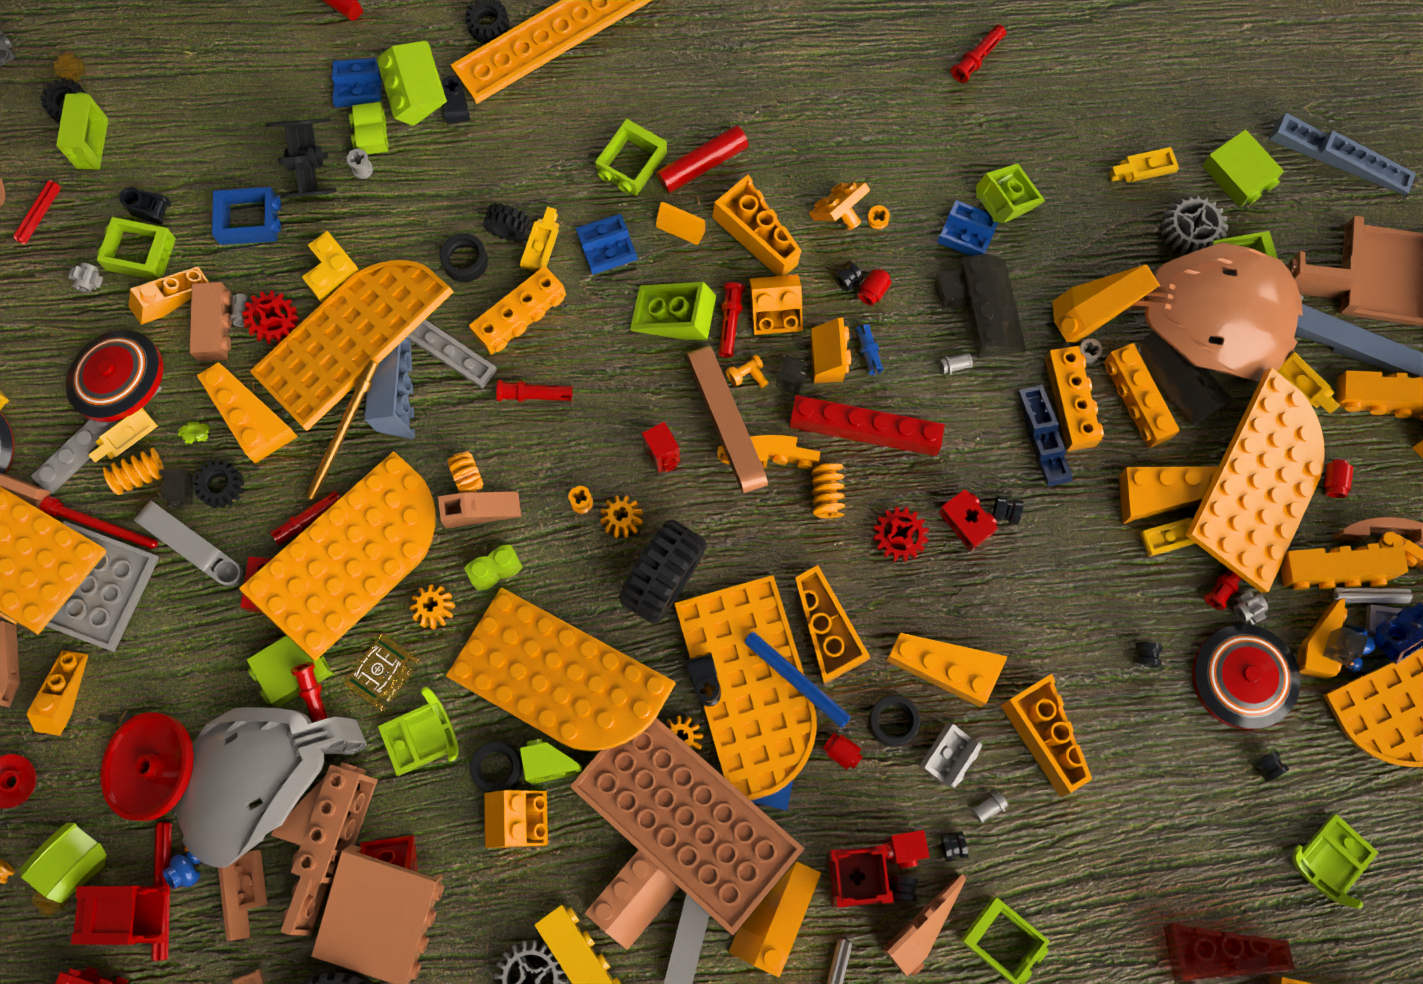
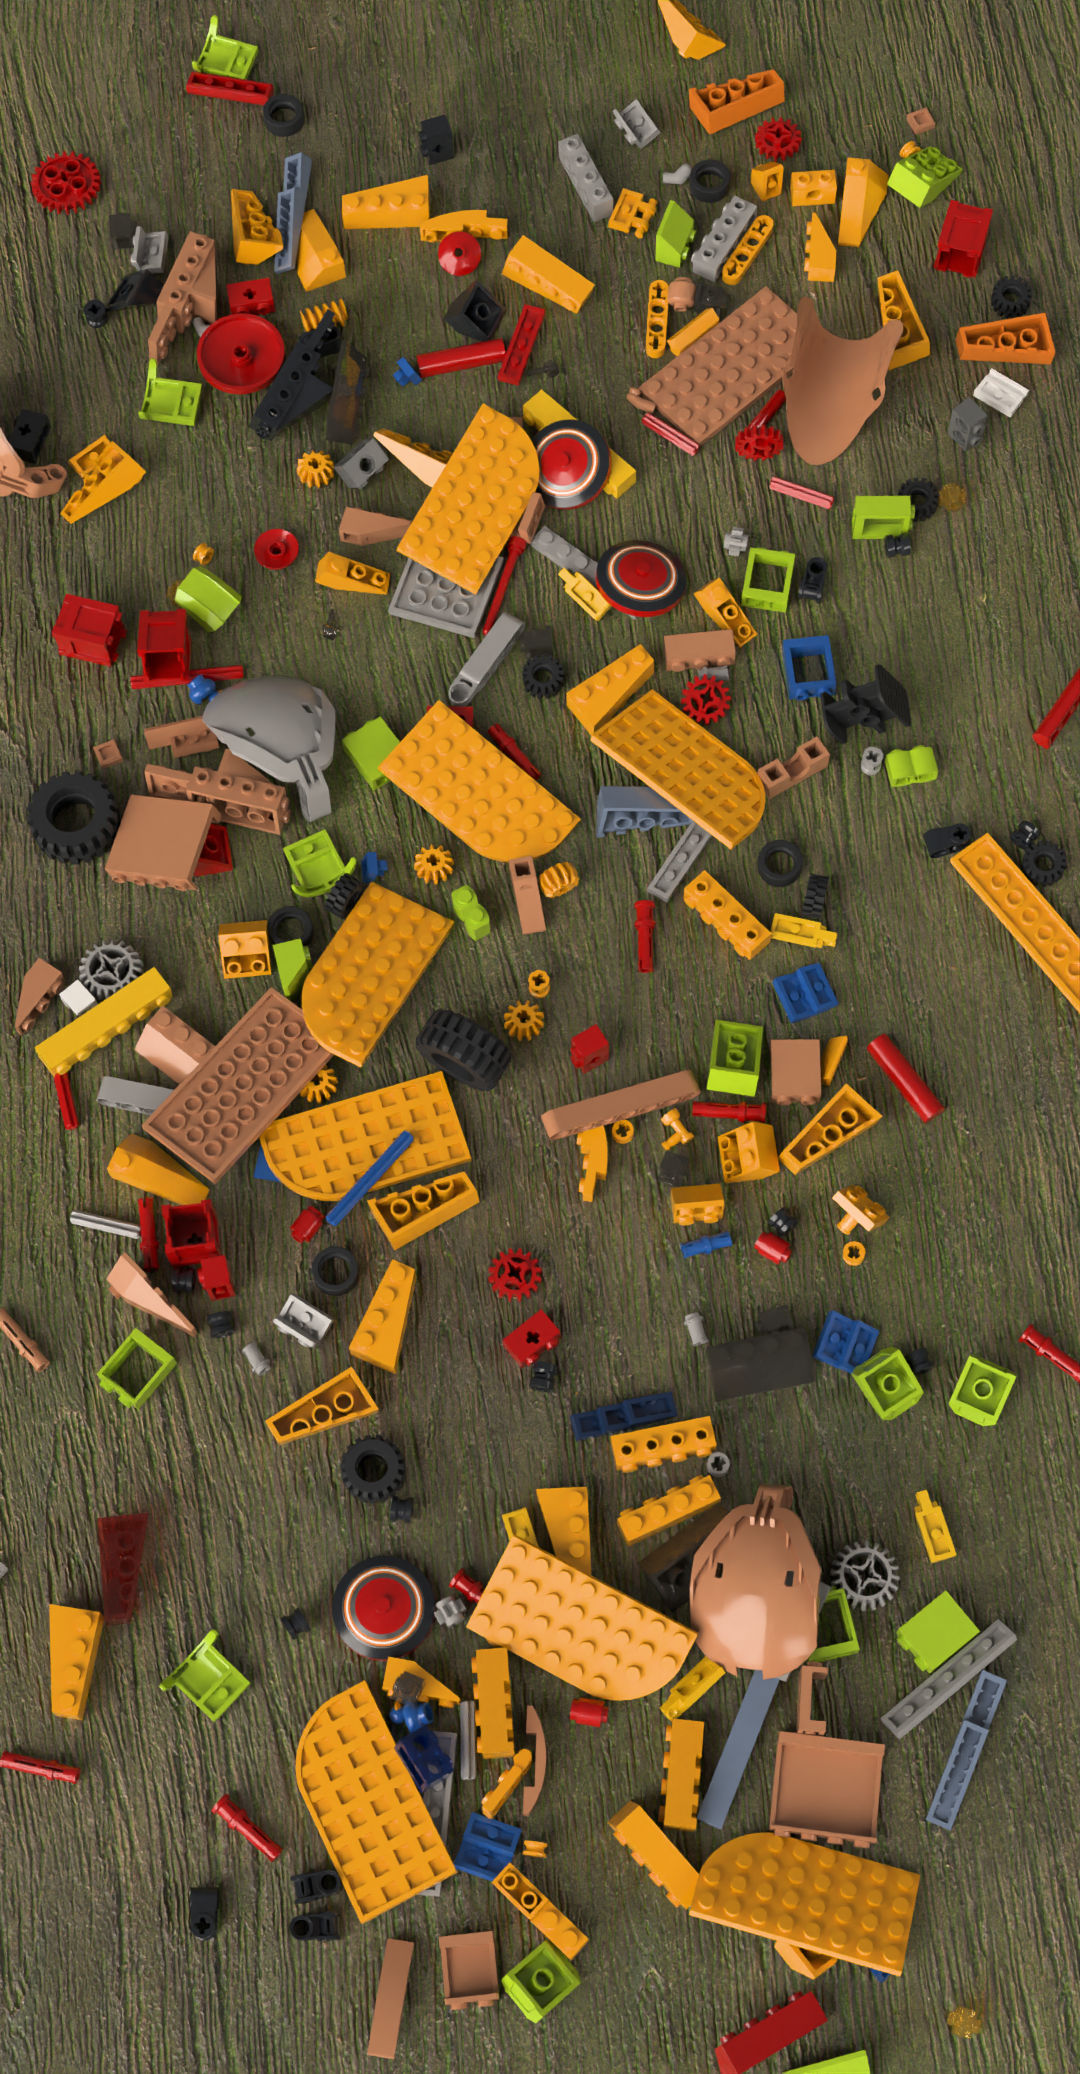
camera: 90 degrees right, 5 degrees down
(116, 121) = (897, 545): none -> black wheel
(134, 473) = (549, 606): light orange piece -> none
(147, 766) = (287, 650): red dish -> none
(194, 432) = (591, 650): lime plant -> none
(310, 690) = (351, 769): red pin -> none
(333, 269) = (759, 749): yellow brick -> none
(356, 82) = (963, 751): blue slope -> none
(358, 232) = (807, 761): none -> nougat arch
(362, 386) = (632, 780): pearl gold bar -> none
(381, 672) = (375, 829): clear yellow piece -> none
(411, 81) = (961, 796): lime slope -> none
(429, 675) = (371, 867): none -> blue tile
(456, 33) = (1024, 835): none -> black wheel
(464, 703) = (344, 895): none -> black tyre
(644, 139) = (907, 991): lime window -> none
(692, 253) = (795, 1071): none -> nougat panel
(703, 676) = (371, 1095): black piece -> none
(751, 419) = (615, 1129): none -> light orange bush
(826, 491) = (556, 1205): light orange piece -> none
(850, 930) = (148, 1235): none -> red pin
(867, 425) = (623, 1241): red brick -> none
(987, 164) = (919, 1361): none -> black wheel
(1015, 112) = (981, 1391): none -> lime slope
(1096, 302) = (762, 1460): light orange wedge -> none
(1129, 674) = (372, 1448): none -> black tyre
(1295, 172) = (948, 1679): none -> light grey plate

